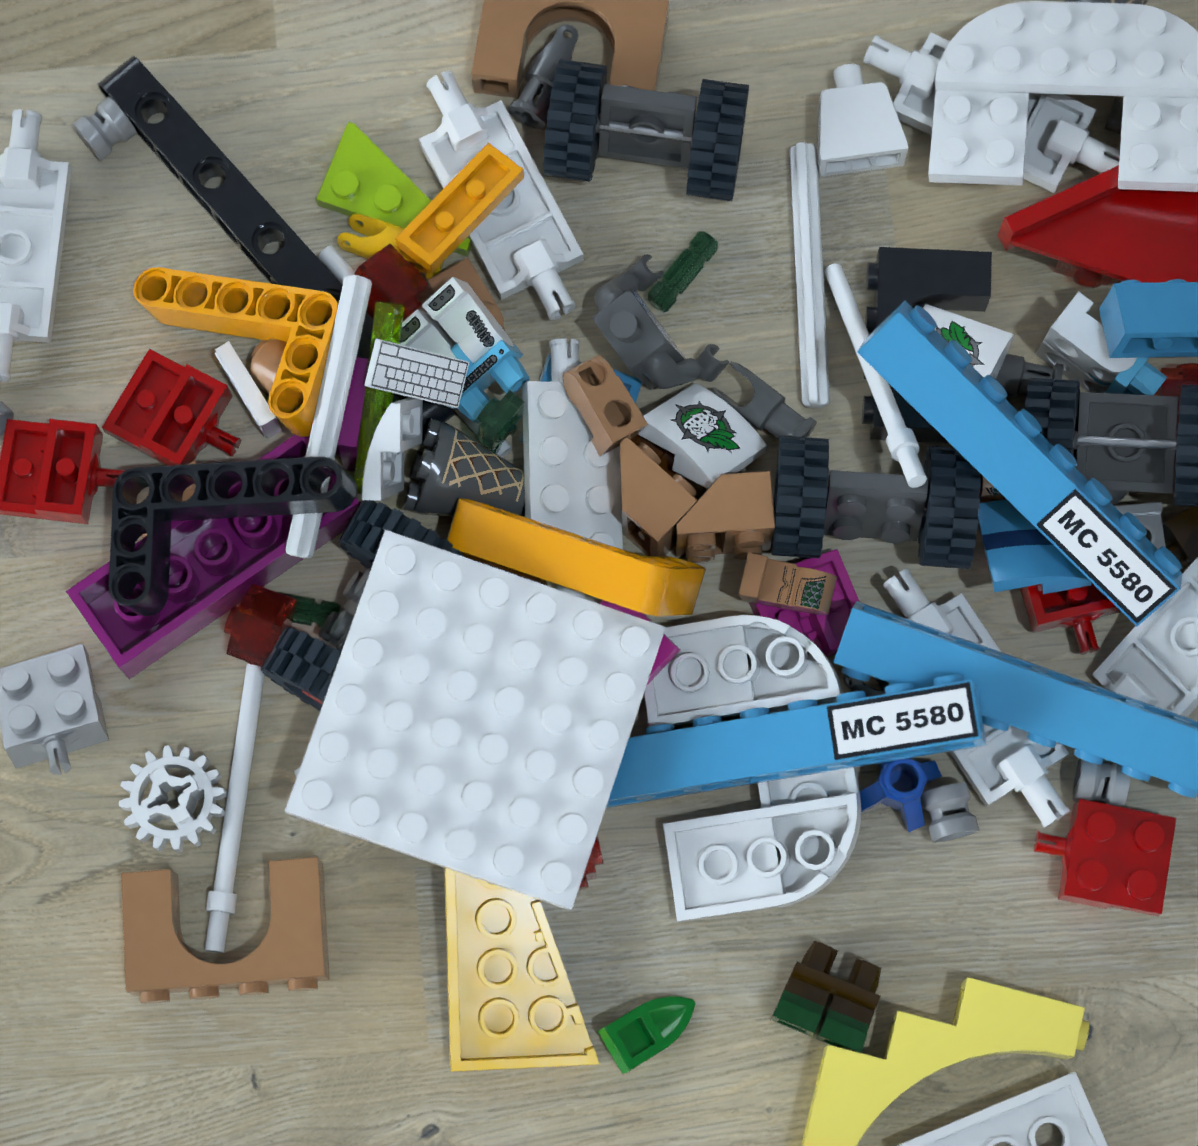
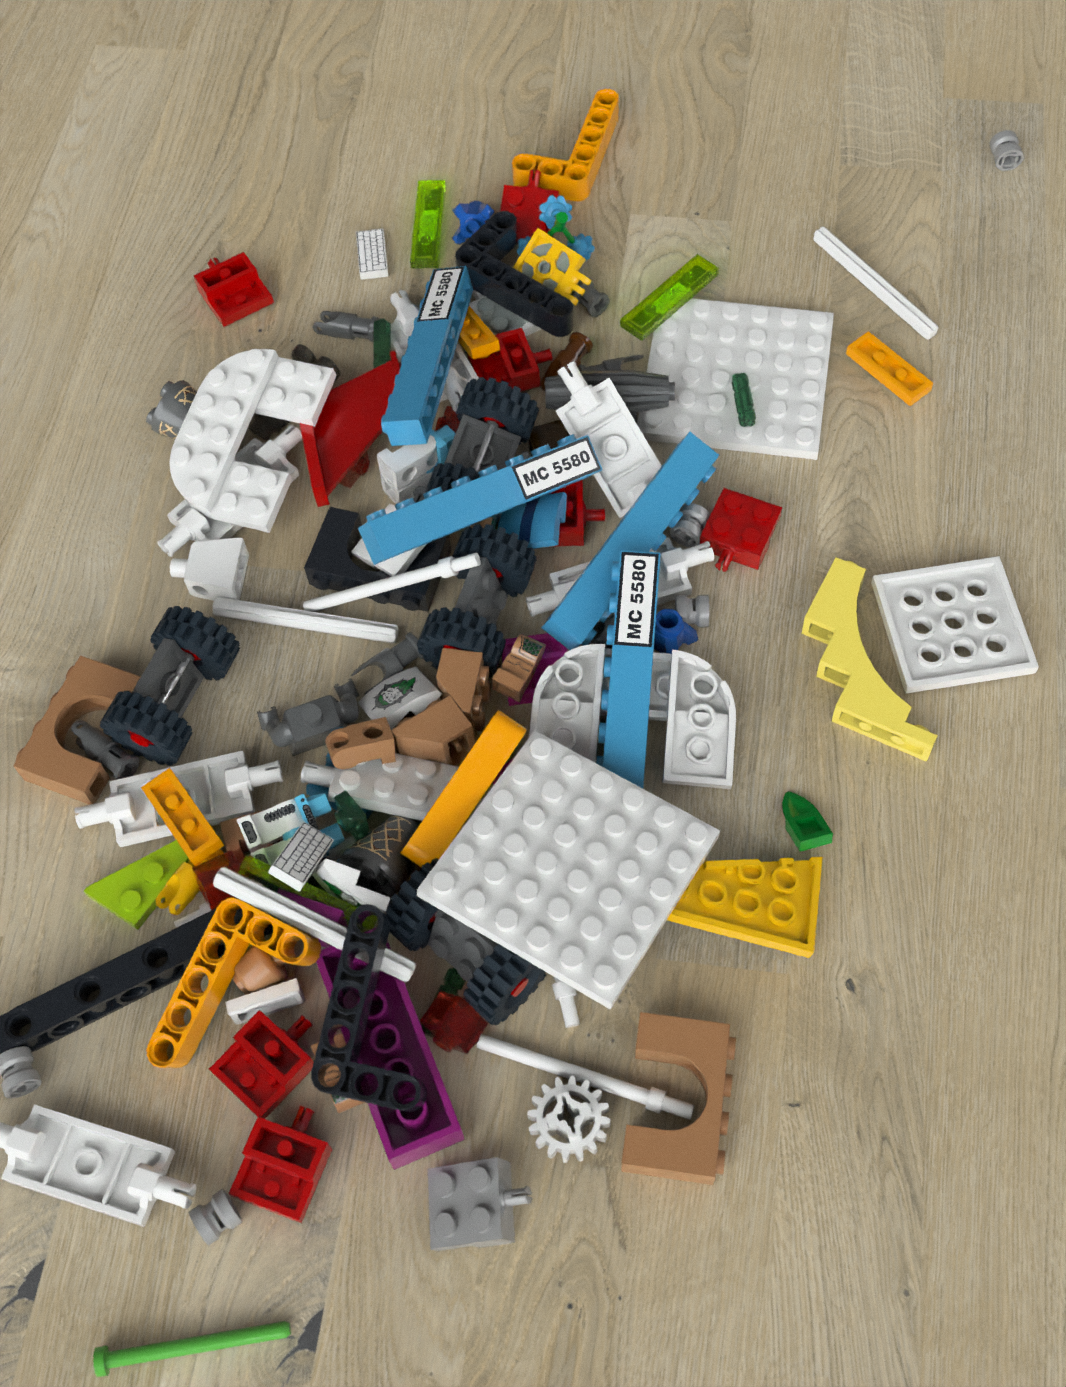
camera: 75 degrees left, 15 degrees down
(683, 271) = (272, 691): clear green axle -> none
(850, 1004) = (806, 707): hips -> none

